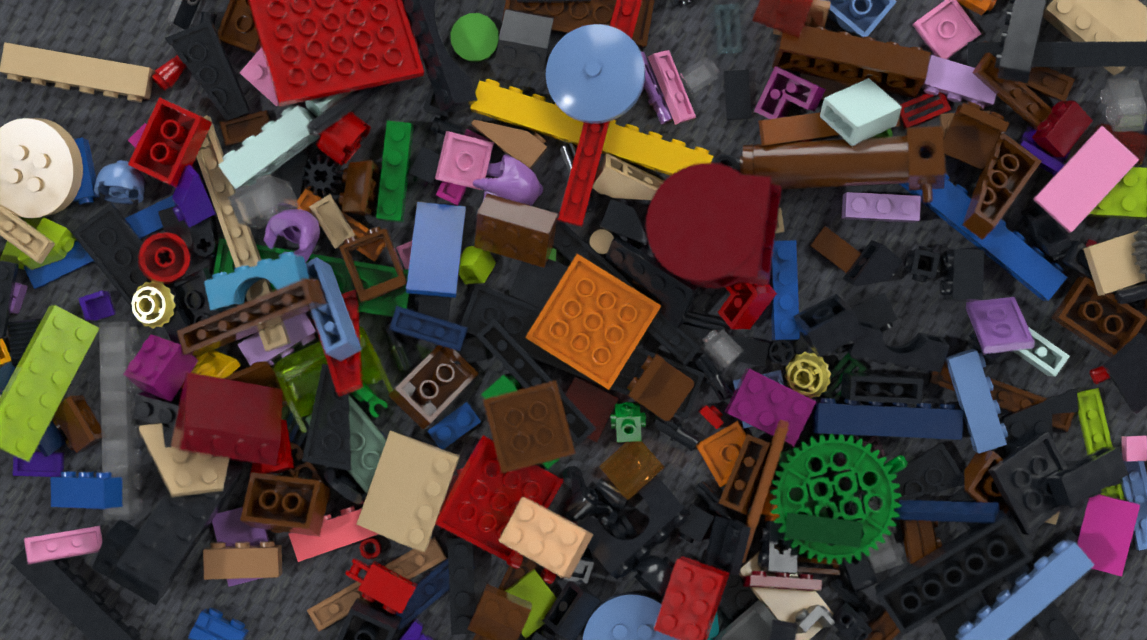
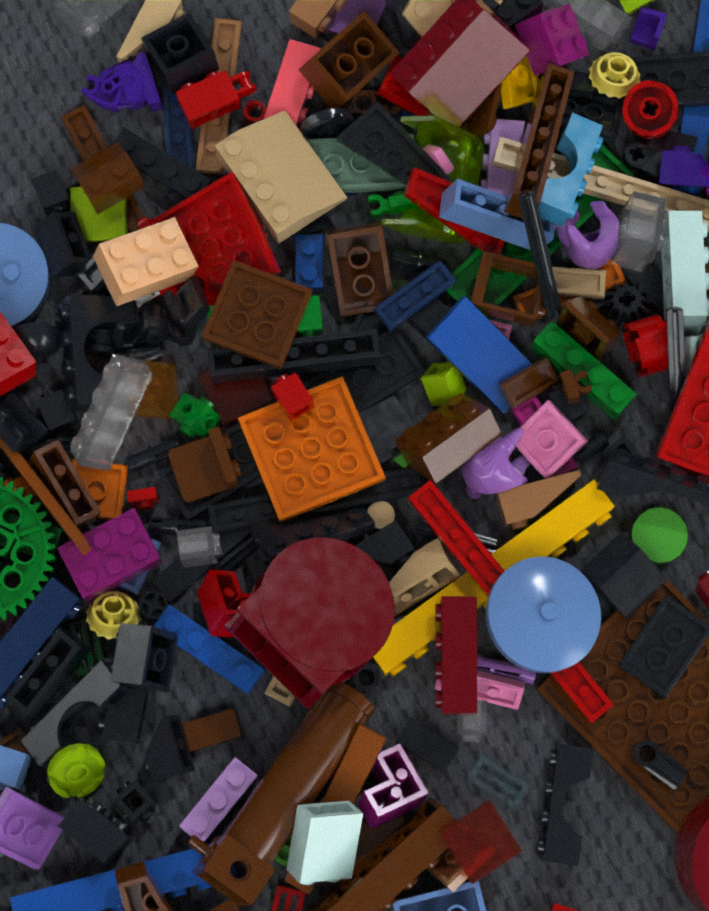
camera: 125 degrees right, 10 degrees down
(311, 385) = (439, 158): none -> bright pink tile
(338, 255) = (540, 253): none -> black axle
(415, 169) = (571, 386): none -> reddish brown tile
(431, 204) = (528, 382): none -> reddish brown tile
(550, 482) = (192, 302): none -> black tile
(567, 361) = (292, 396): none -> red brick
(666, 112) = (458, 655): none -> dark red brick
(672, 480) = (110, 412): none -> clear brick
(932, 319) = (76, 770): none -> lime tile

